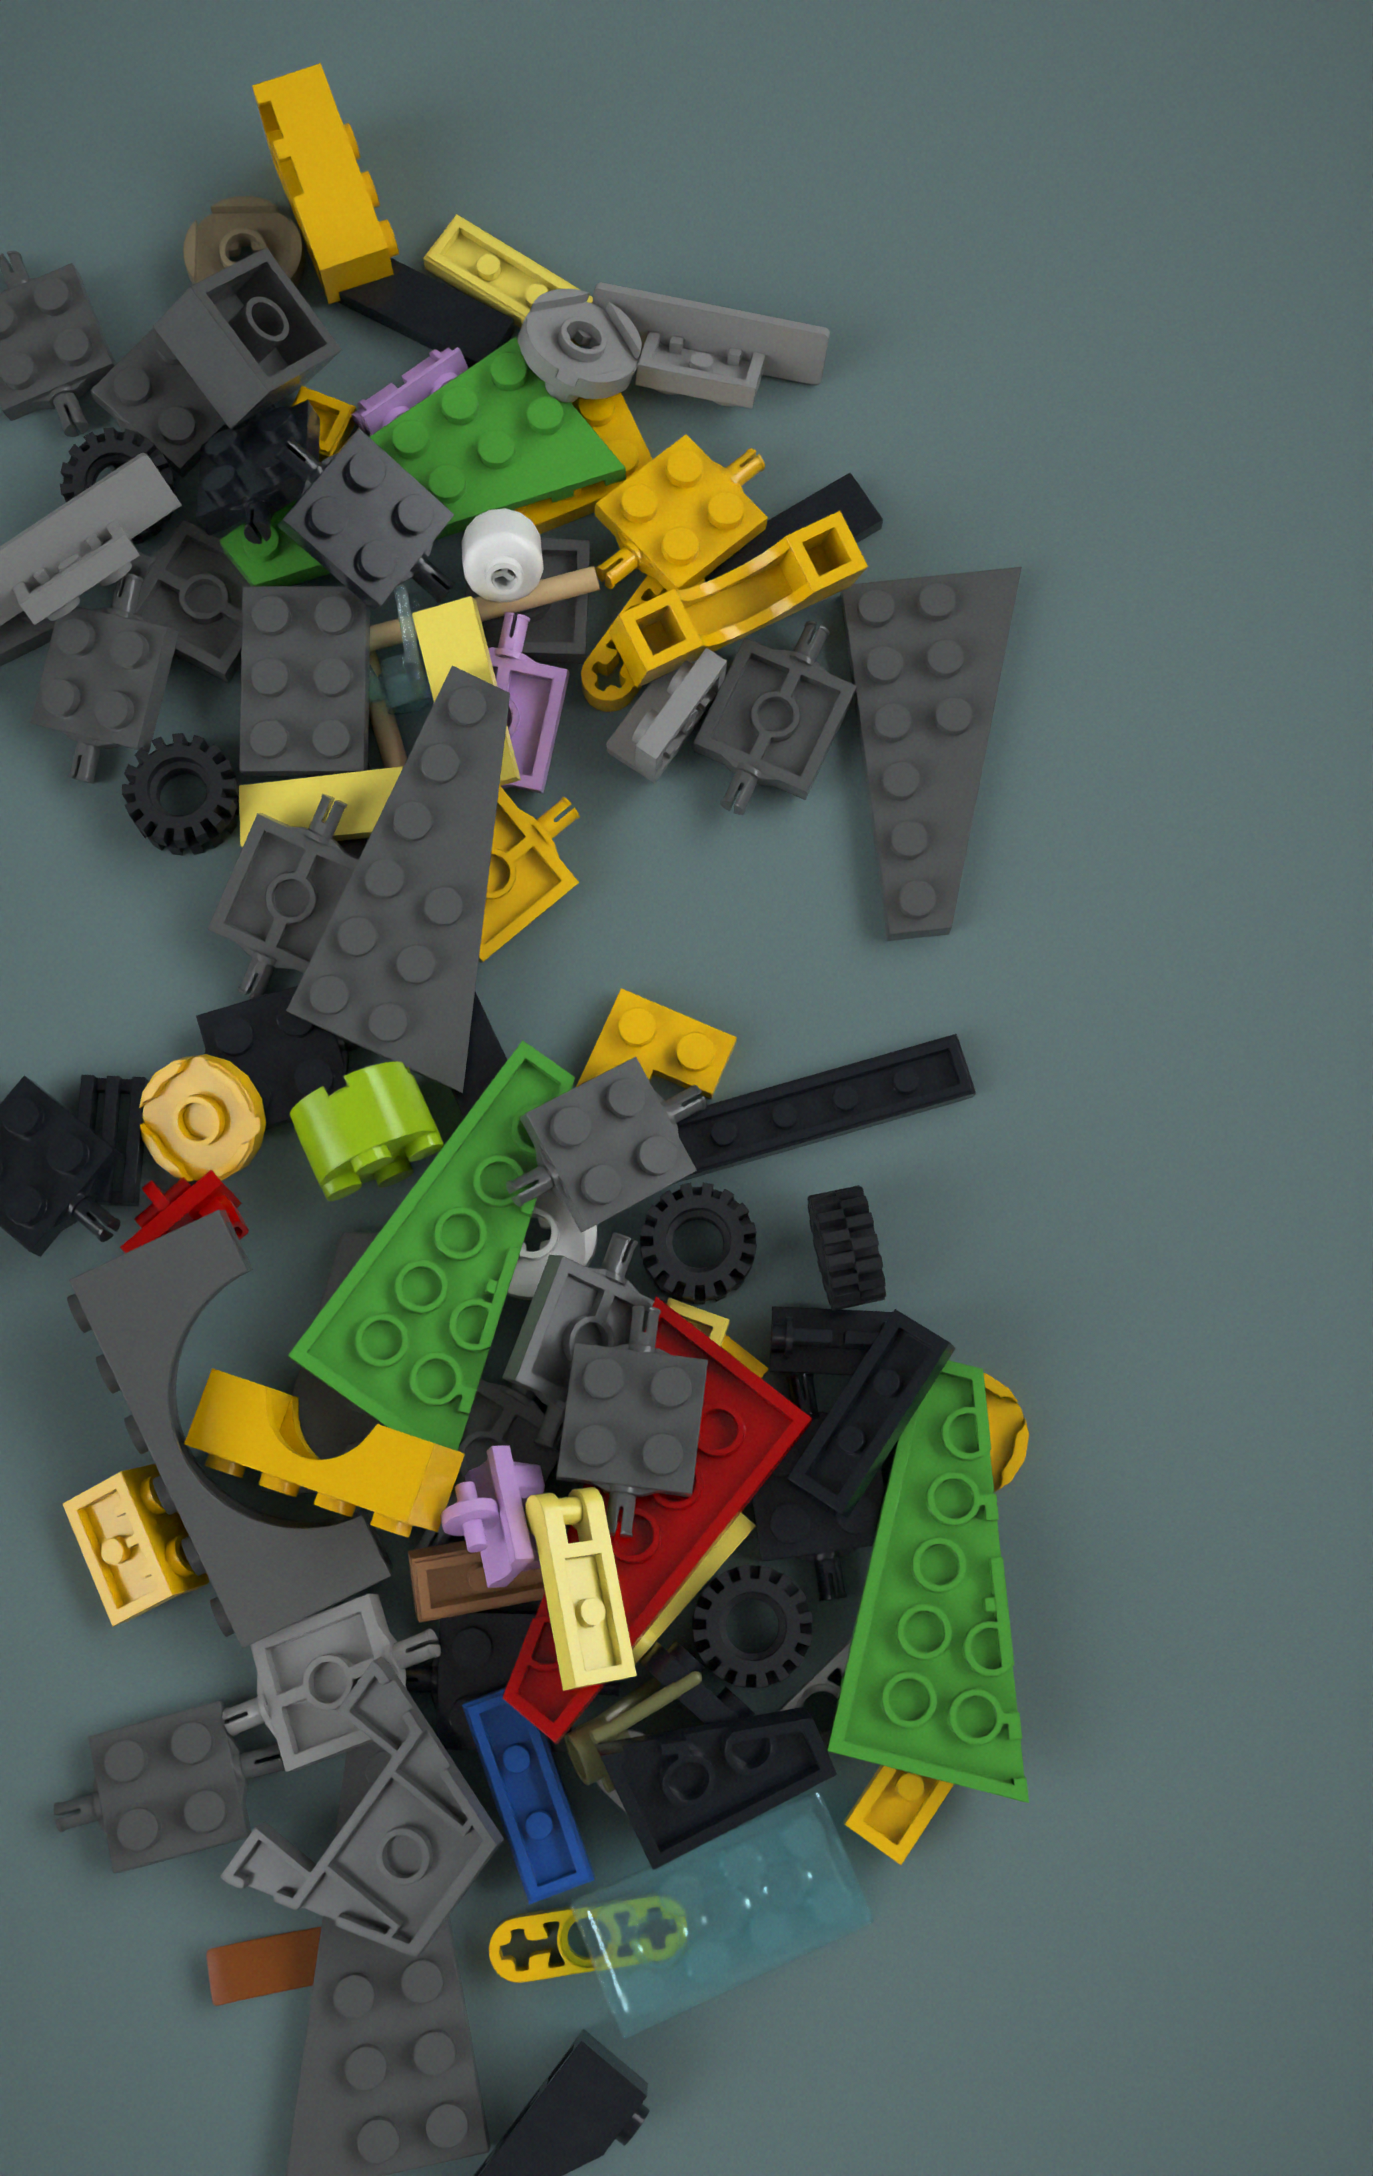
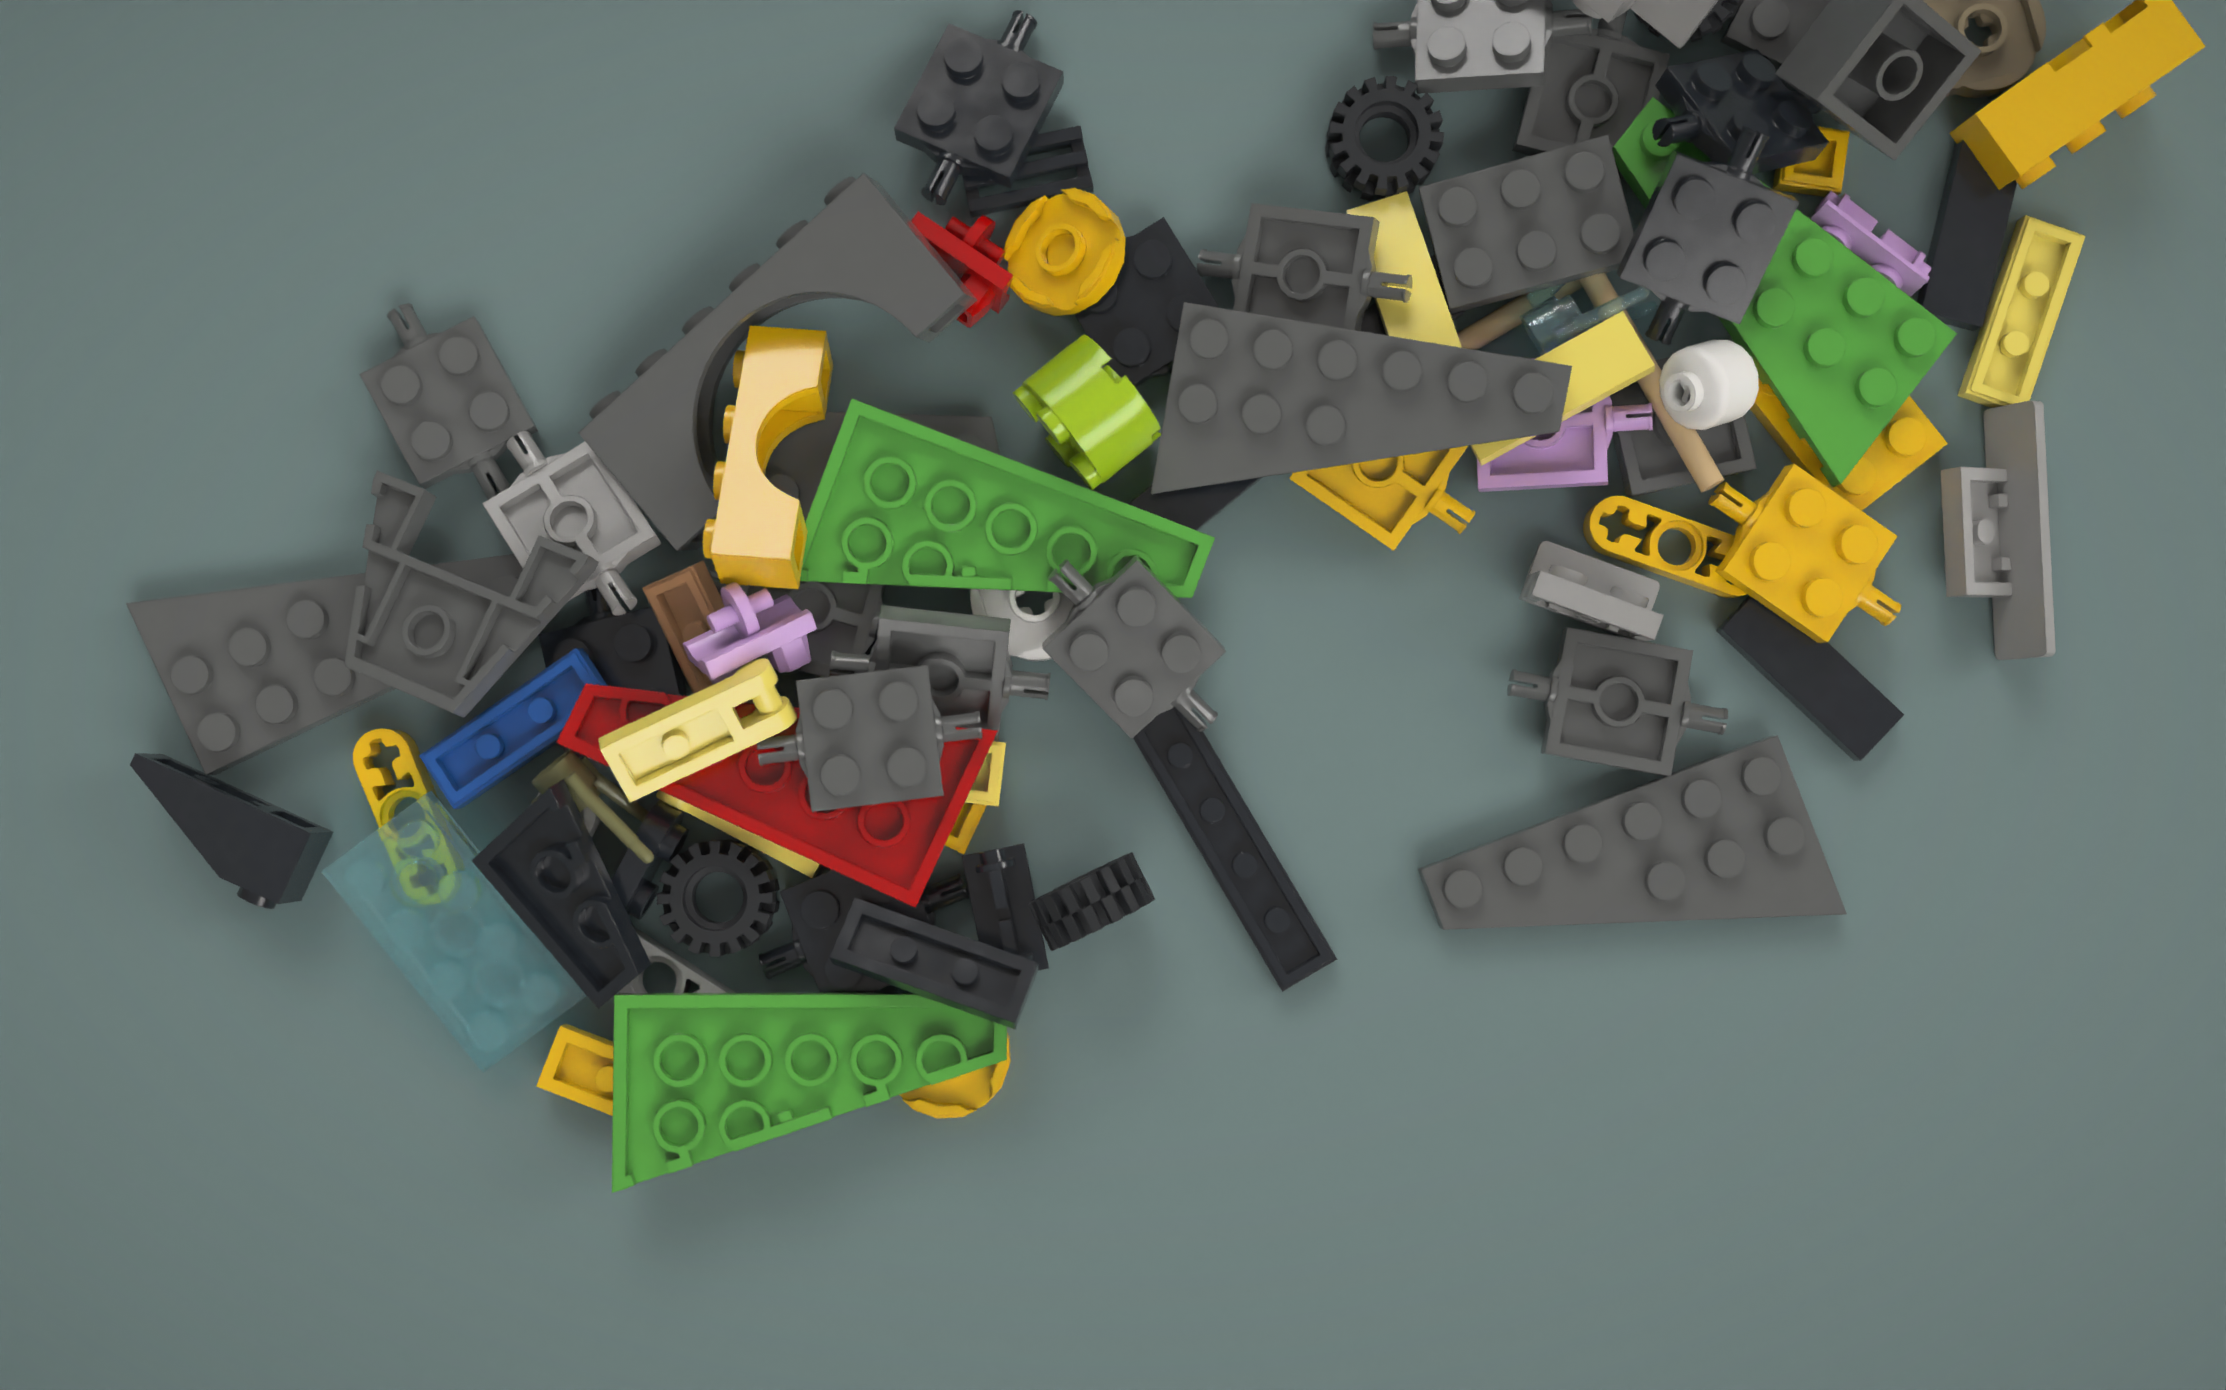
camera: 80 degrees right, 10 degrees up
(131, 1544) = (650, 302): yellow bracket -> none
(263, 1966) = (317, 530): dark orange sticker -> none
(568, 368) = (1934, 394): light grey plate -> none
(662, 1042) = (1253, 667): yellow plate -> none
(698, 1204) = (1026, 747): black tyre -> none
(764, 590) = (1726, 635): yellow arch -> none

